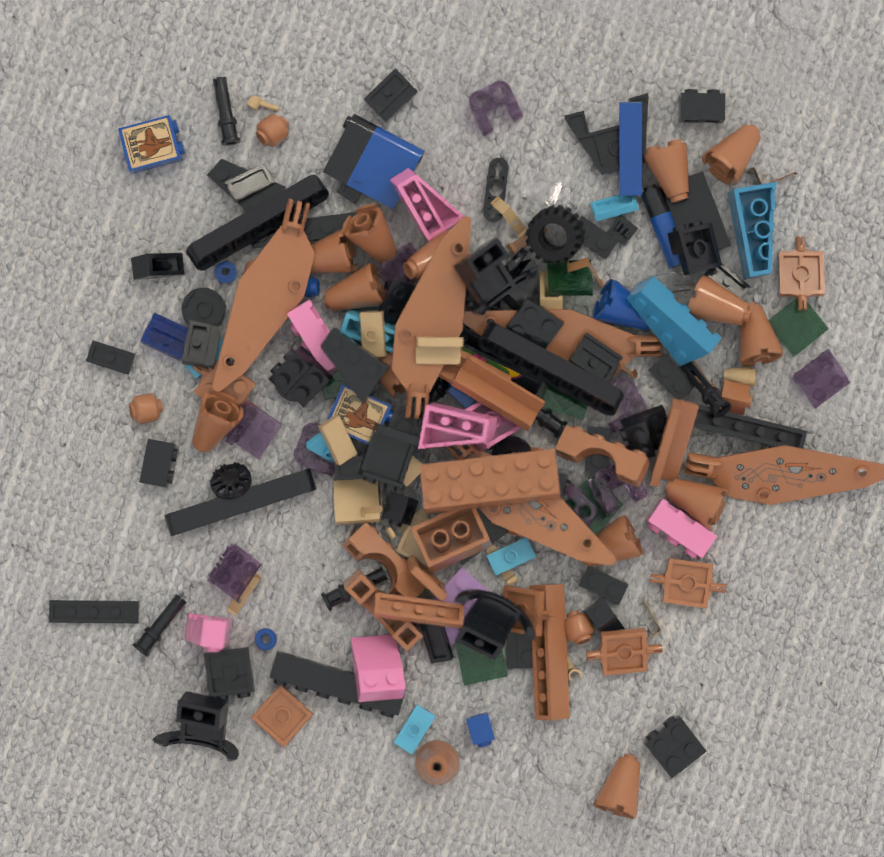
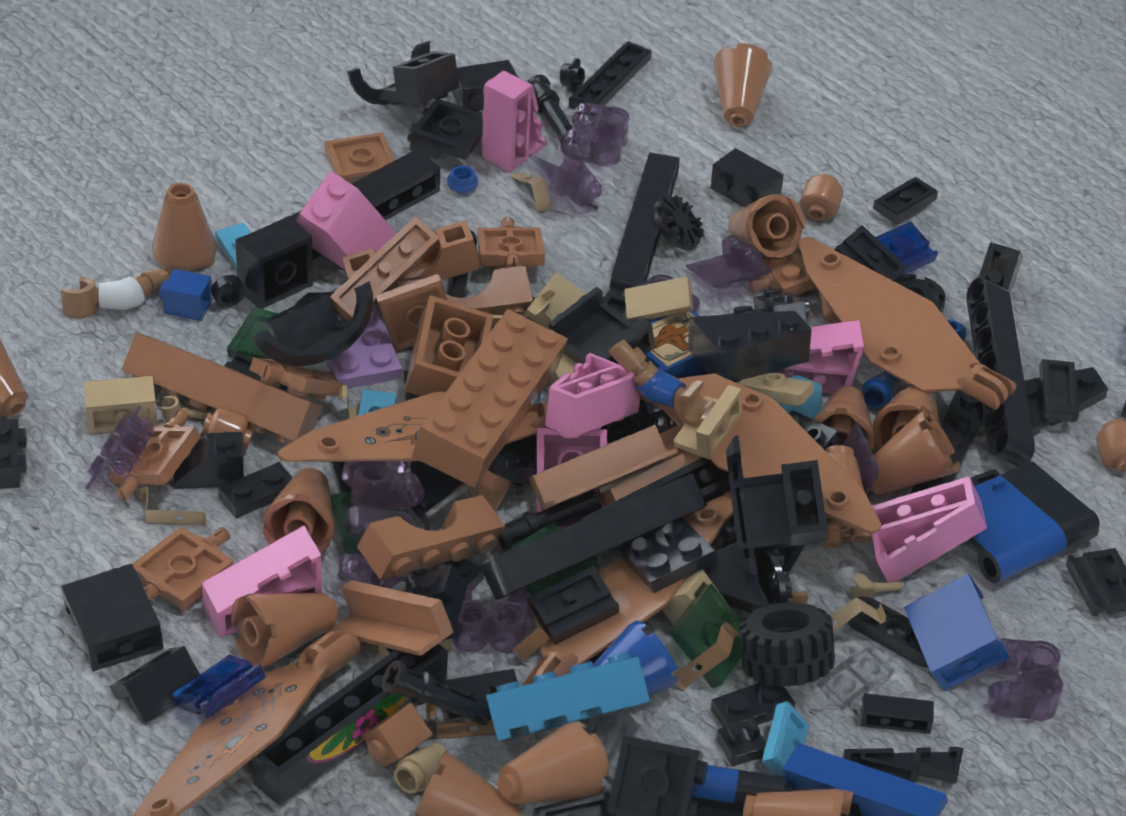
camera: 115 degrees right, 45 degrees down
(64, 515) = (741, 81): none -> nougat cone
(113, 634) = (572, 75): none -> black plate
(163, 680) = (472, 82): none -> black brick
(167, 576) = (600, 137): none -> clear purple piece
(317, 568) = (510, 246): none -> nougat plate
(430, 692) = (275, 262): none -> black brick
(433, 383) = (662, 387): none -> medium nougat piece
(462, 707) = (228, 291): none -> black tile
(475, 221) = (869, 589): none -> tan hand
(491, 155) = (955, 632): none -> panel
(503, 766) = (114, 295): none -> piece
(555, 161) = (897, 713): none -> black piece
(592, 701) = (112, 398): none -> tan panel
(642, 673) = (125, 448): none -> clear purple hinge
(745, 594) = (113, 616): none -> black panel
(756, 507) = (218, 686): none -> clear blue plate
(769, 542) = (153, 683): none -> black panel

